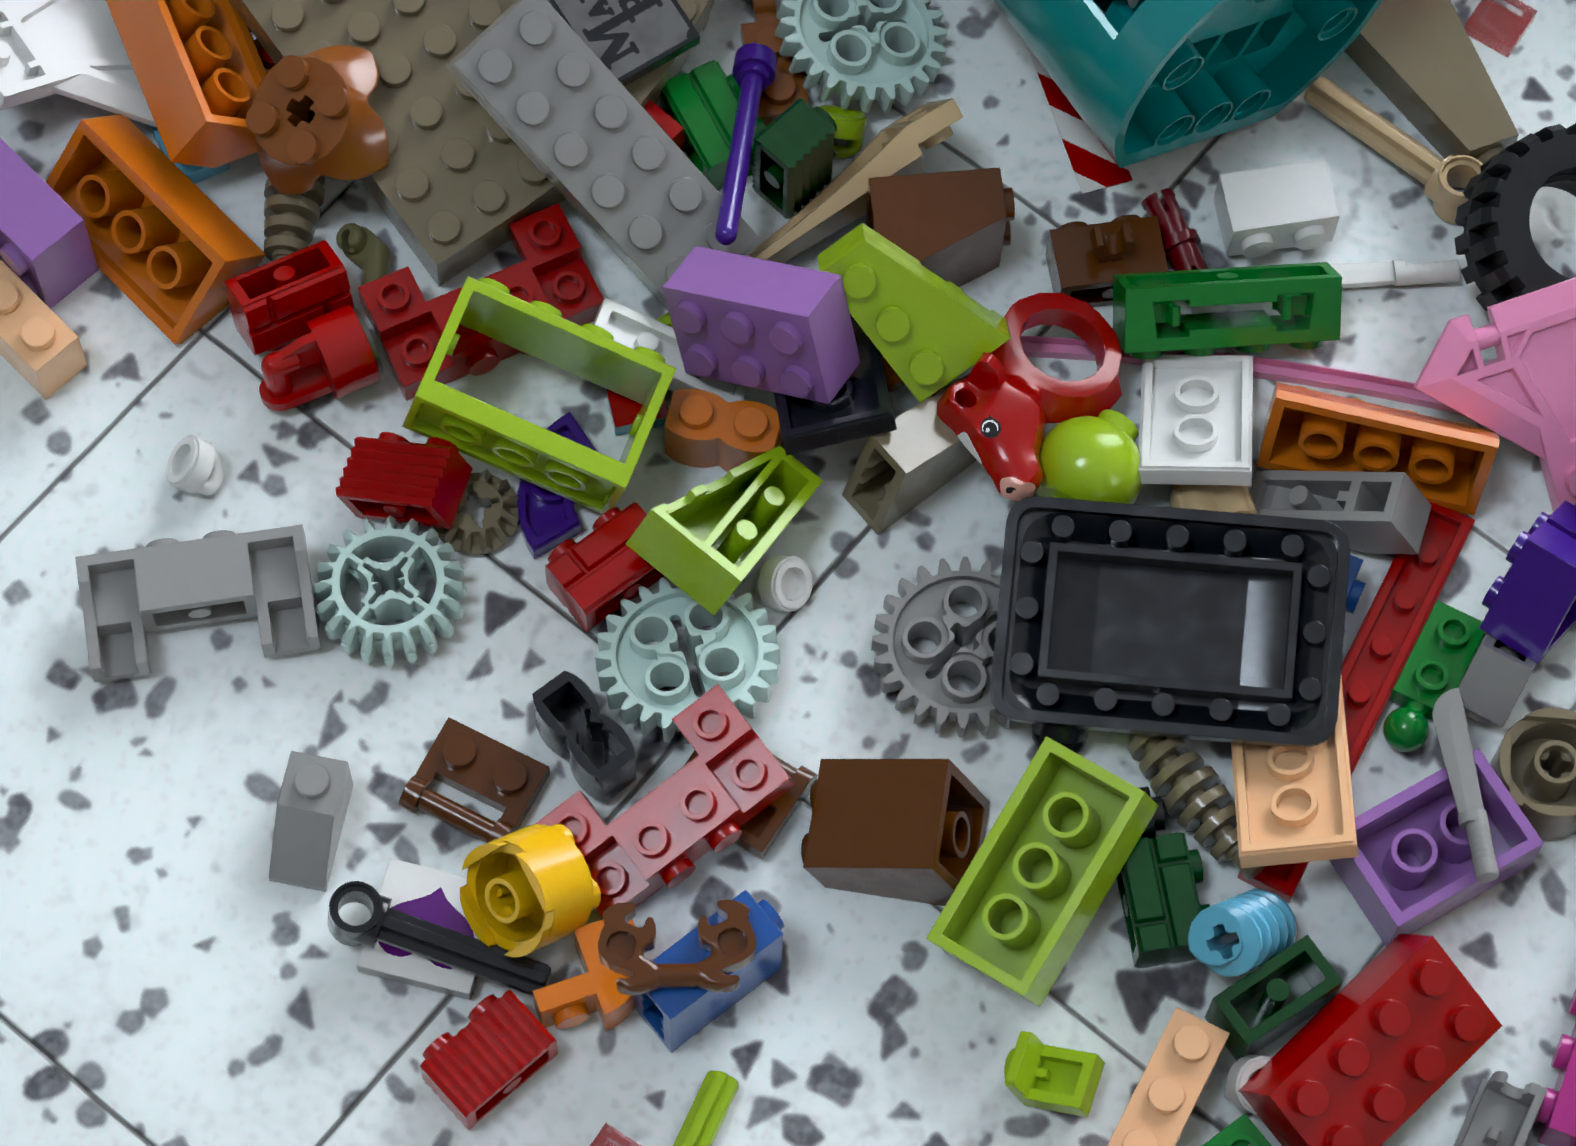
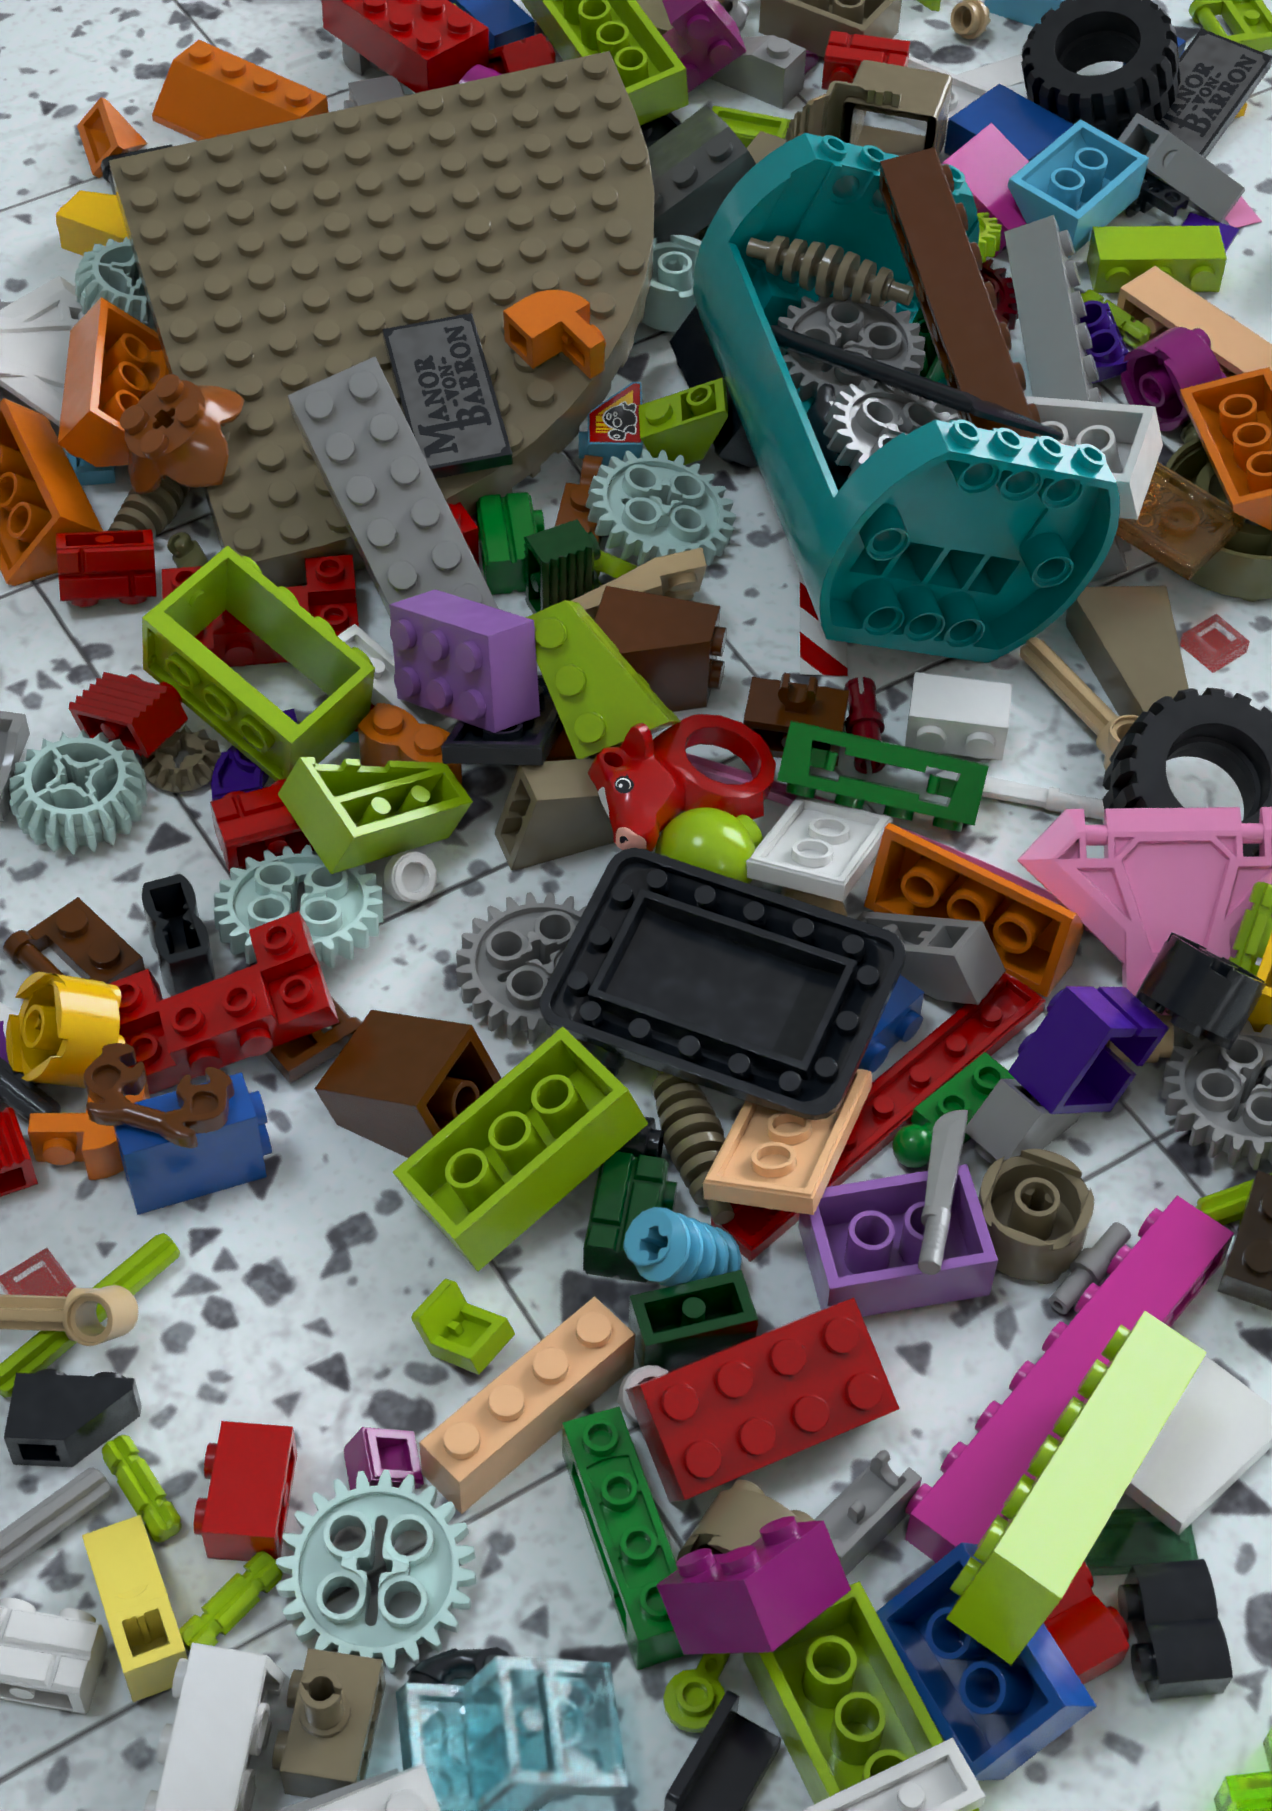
camera: 20 degrees right, 15 degrees down
(331, 358) = (123, 603): red piece -> none
(754, 72) = (554, 507): dark purple piece -> none

